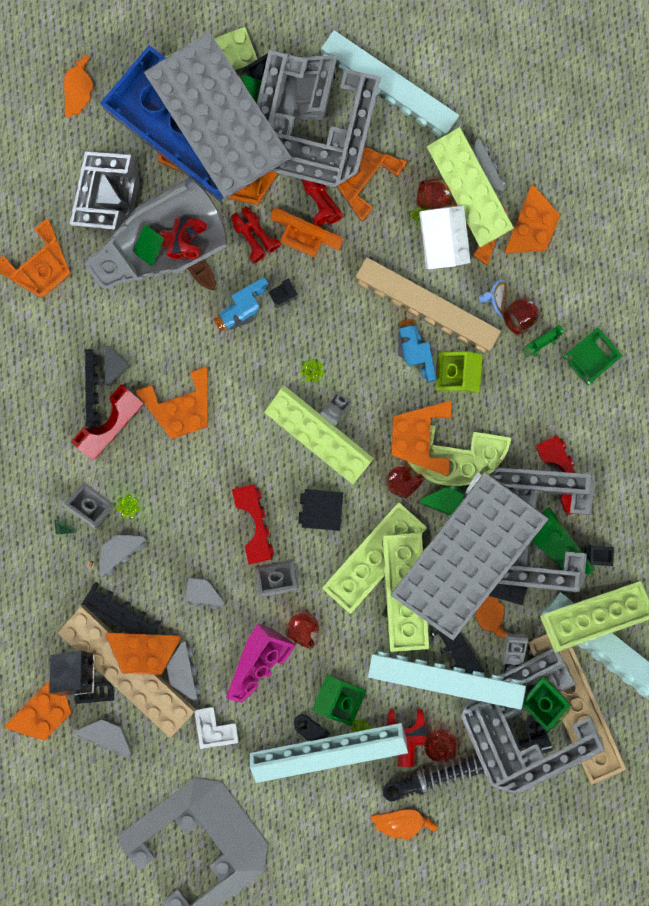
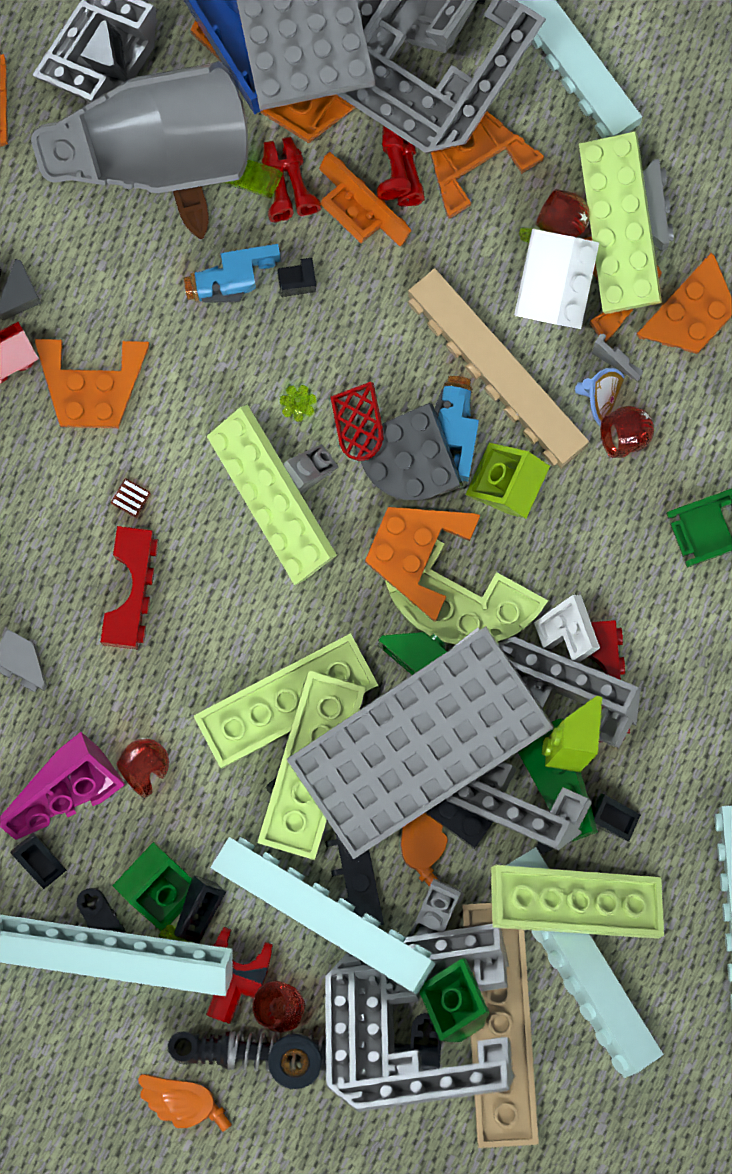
camera: 25 degrees right, 5 degrees down
(148, 245) = (131, 140): green sticker -> none
(180, 237) = (177, 147): red connector -> none
(232, 467) = (130, 498): none -> tile
(238, 240) = (258, 179): none -> clear neon green tile
(261, 711) = (38, 860): none -> black slope
(276, 578) = (132, 679): light grey slope -> none
(321, 510) = (235, 603): black piece -> none
(367, 366) = (378, 423): none -> red window
(369, 697) = (199, 891): none -> black slope
(394, 380) = (412, 458): none -> dark grey plate
(401, 483) = (365, 606): clear red helmet -> none
(464, 786) = (310, 1058): none -> black bush
(497, 272) = (615, 358): none -> light grey tile
(531, 447) = (569, 623): none -> white plate
(542, 341) = (643, 477): green container -> none
(563, 519) = (575, 739): none -> lime slope

